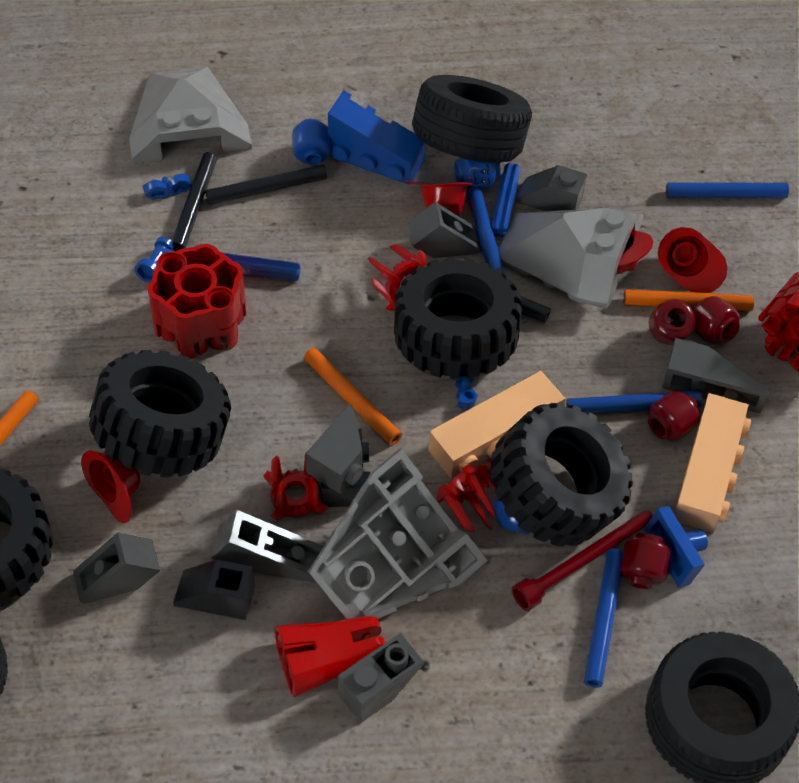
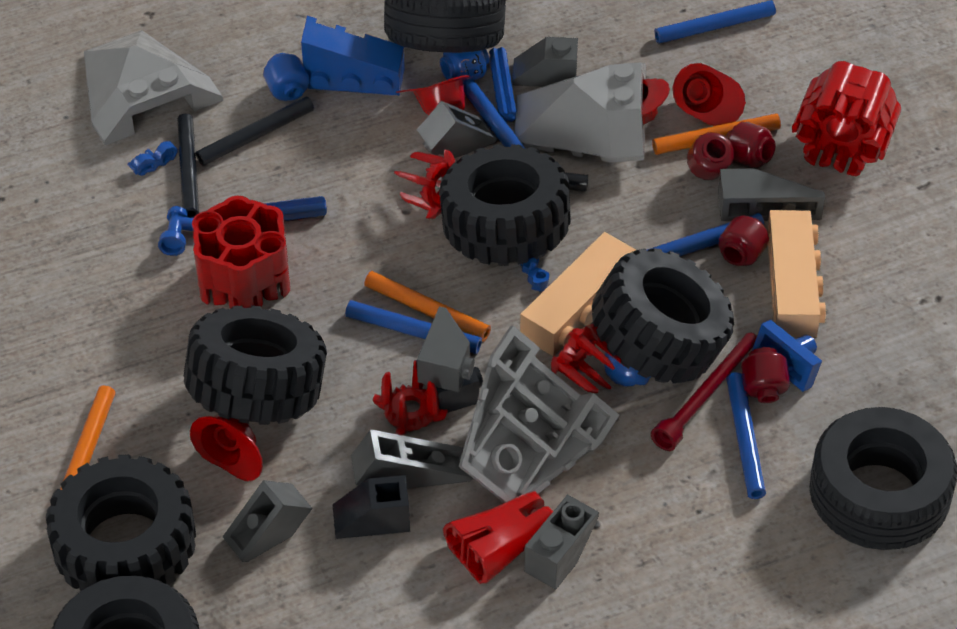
camera: 15 degrees left, 5 degrees down
(326, 409) = (399, 322): none -> blue piece

